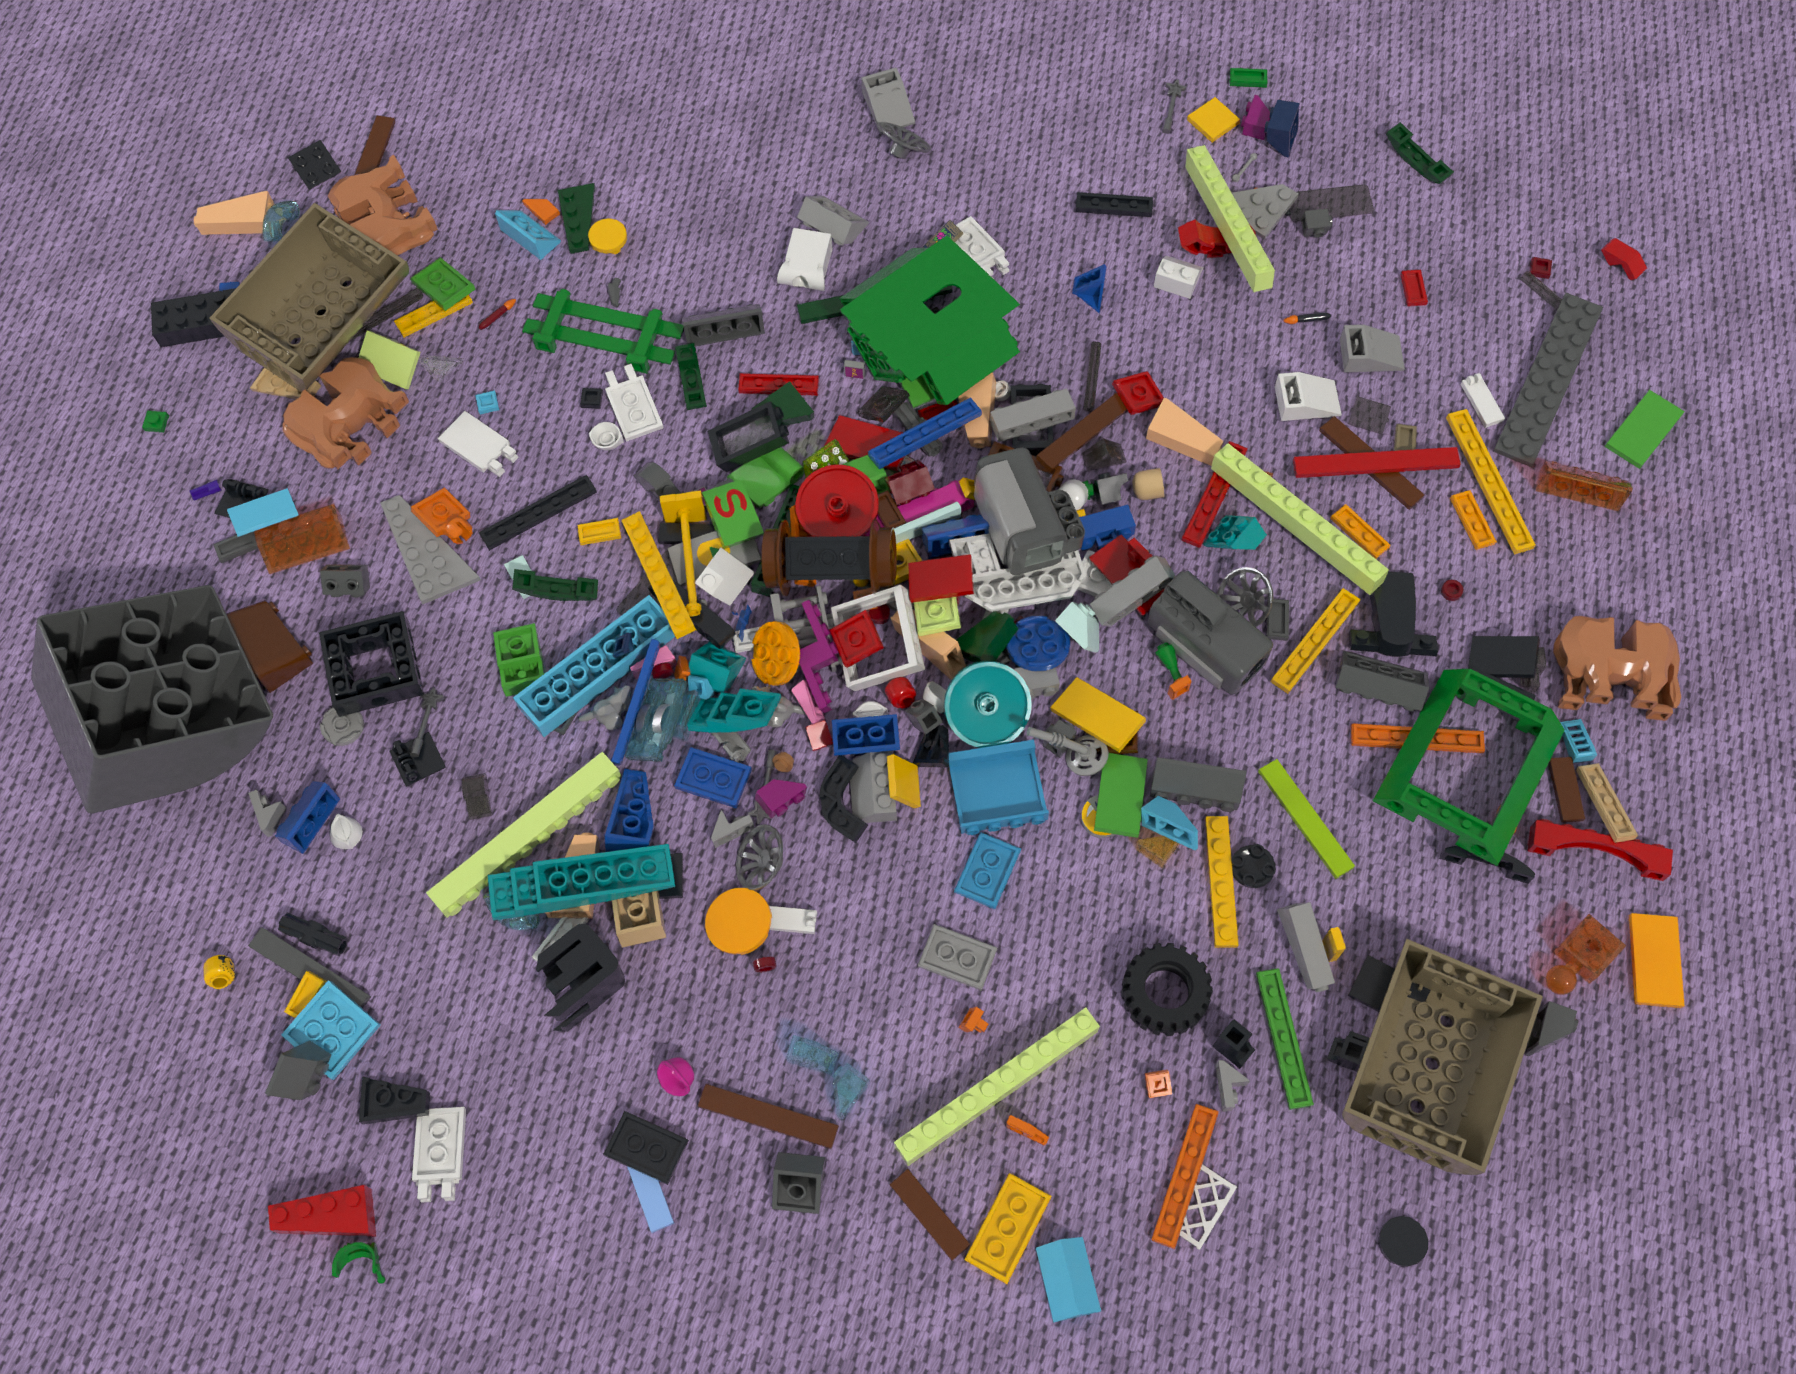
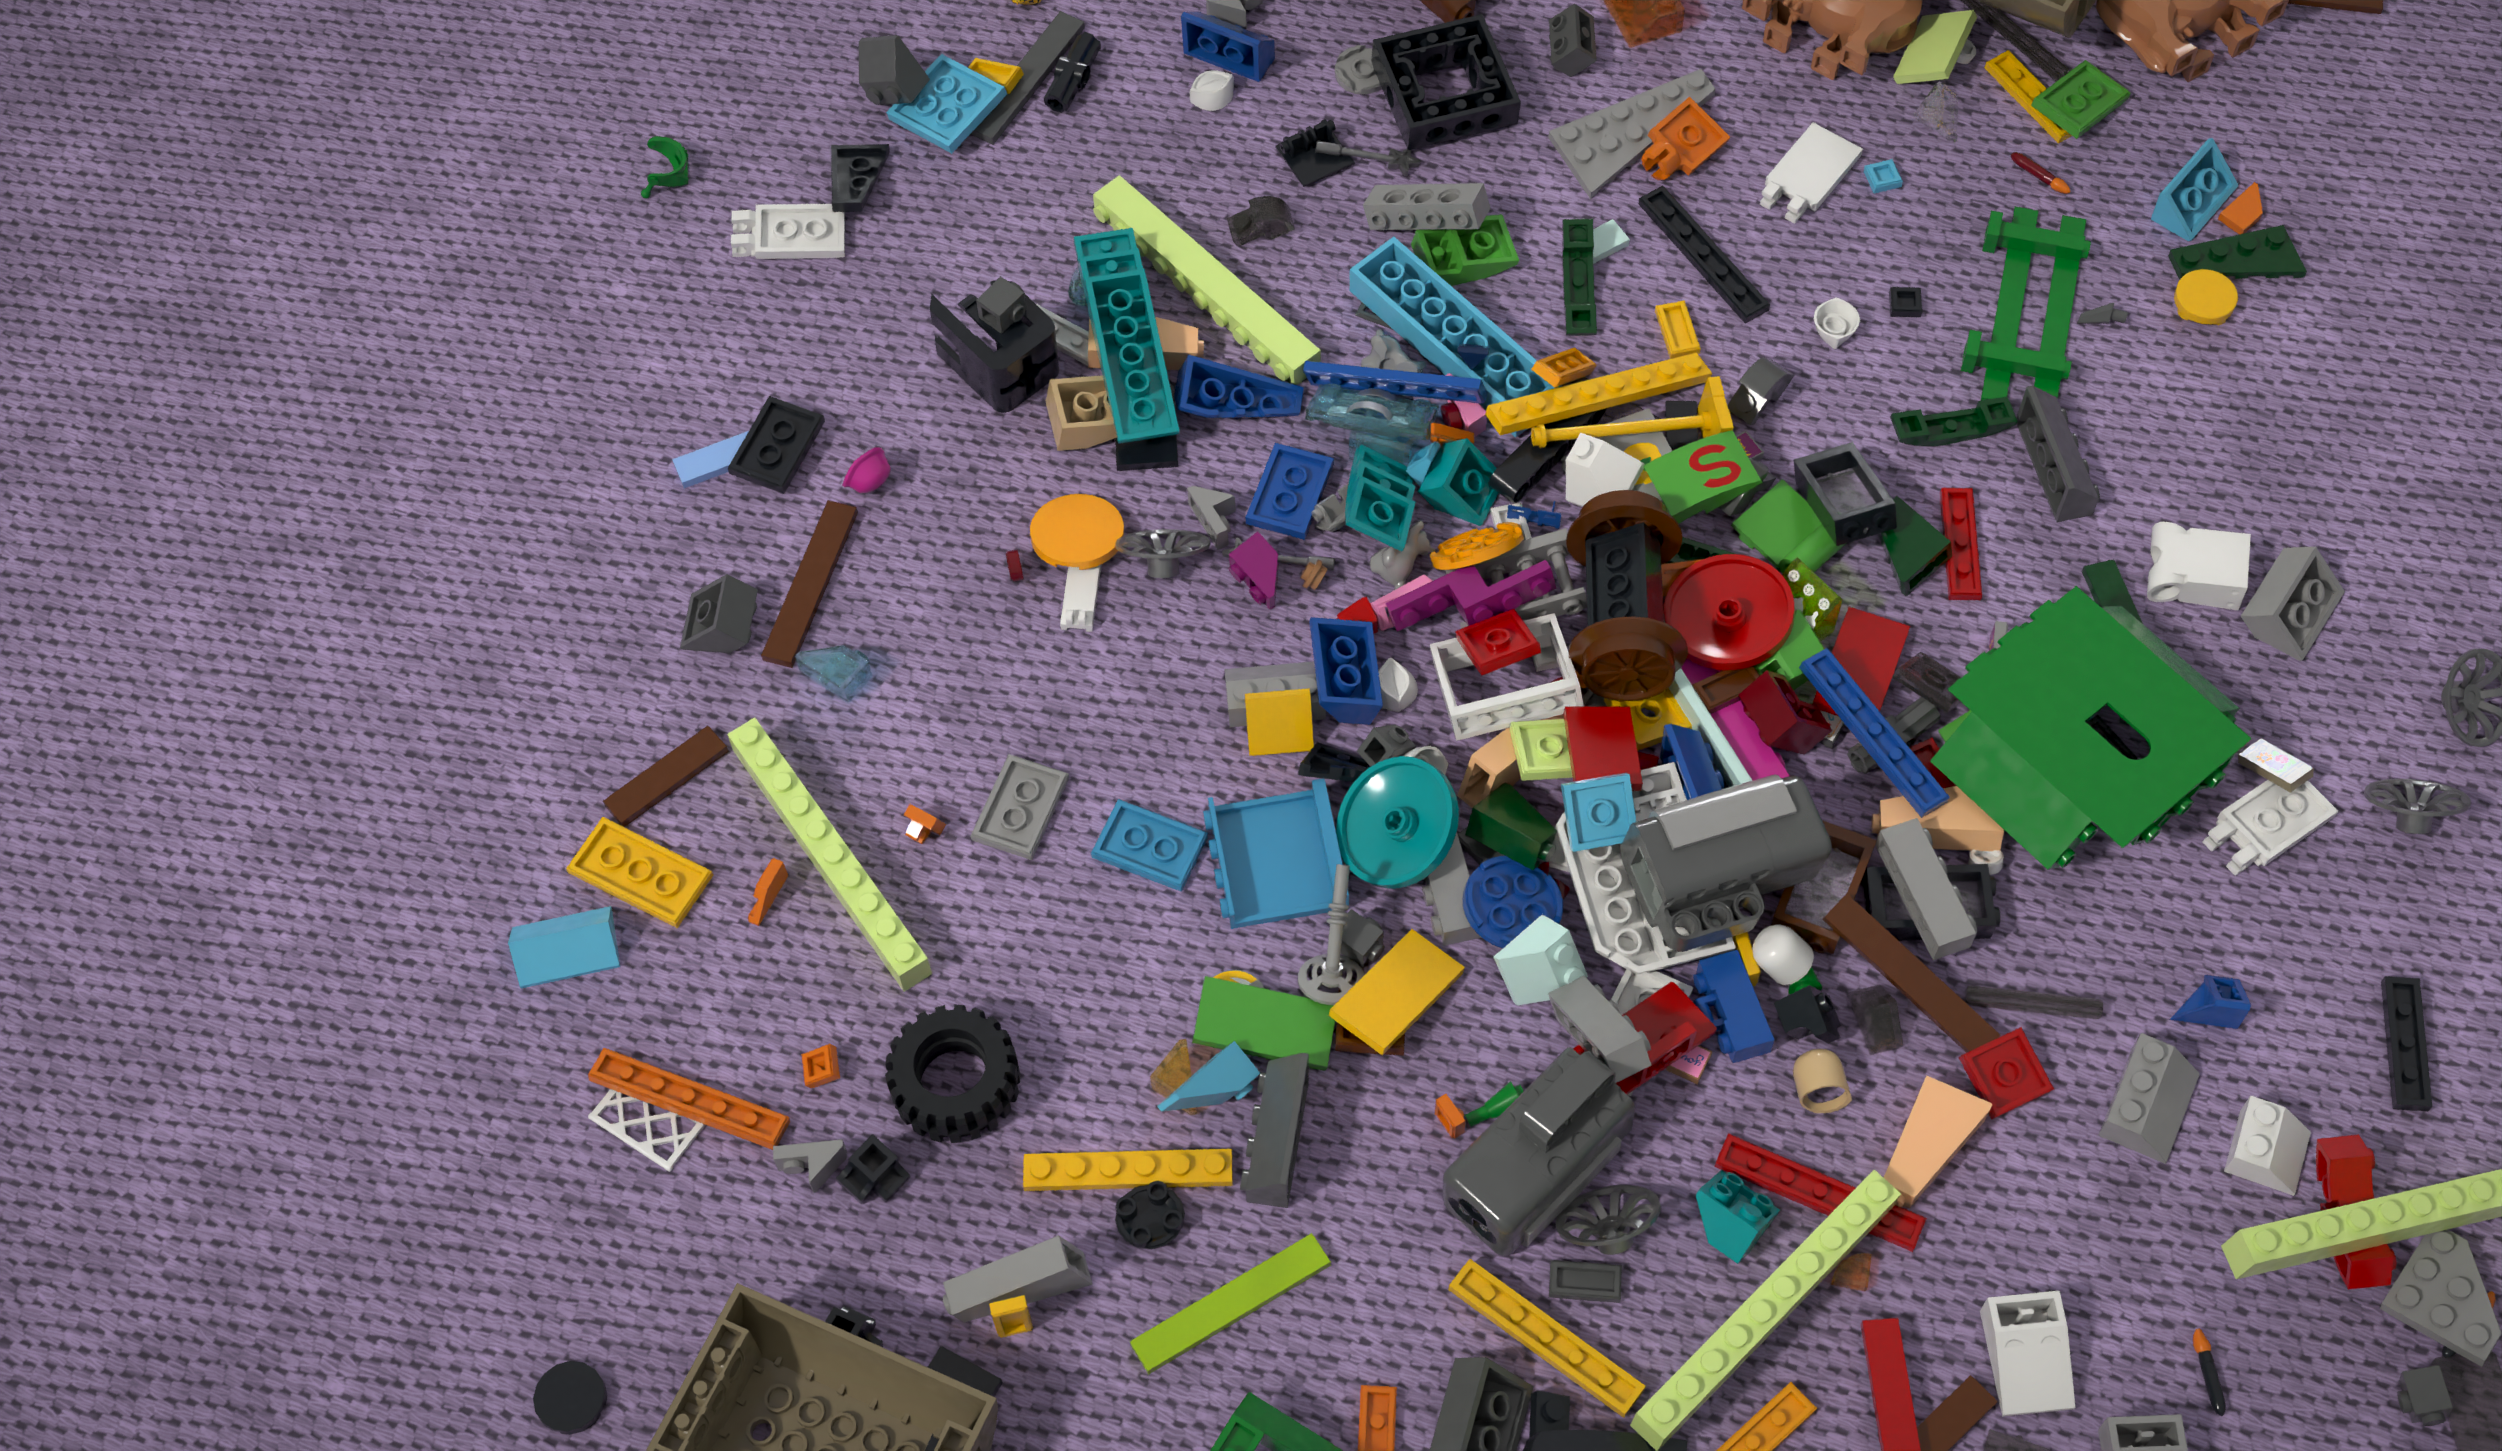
camera: 90 degrees right, 5 degrees down
(332, 1213) = (721, 135): red wedge -> none
(479, 681) = (1426, 206): none -> light grey brick
(565, 957) = (1001, 304): none -> dark grey brick
(632, 405) = (1899, 352): white tile -> none
(634, 594) = (1564, 367): none -> light orange tile
(811, 1055) = (886, 624): clear light blue slope -> none
(832, 800) = (1236, 643): black plate -> none
(900, 692) = (1427, 720): red head -> none
(976, 177) = (2412, 814): none -> flat silver wheel
(990, 579) = (1598, 811): none -> medium azure plate
(1151, 327) = (2150, 1099): none -> light grey slope
(1284, 1039) = (879, 1248): bright green tile -> none

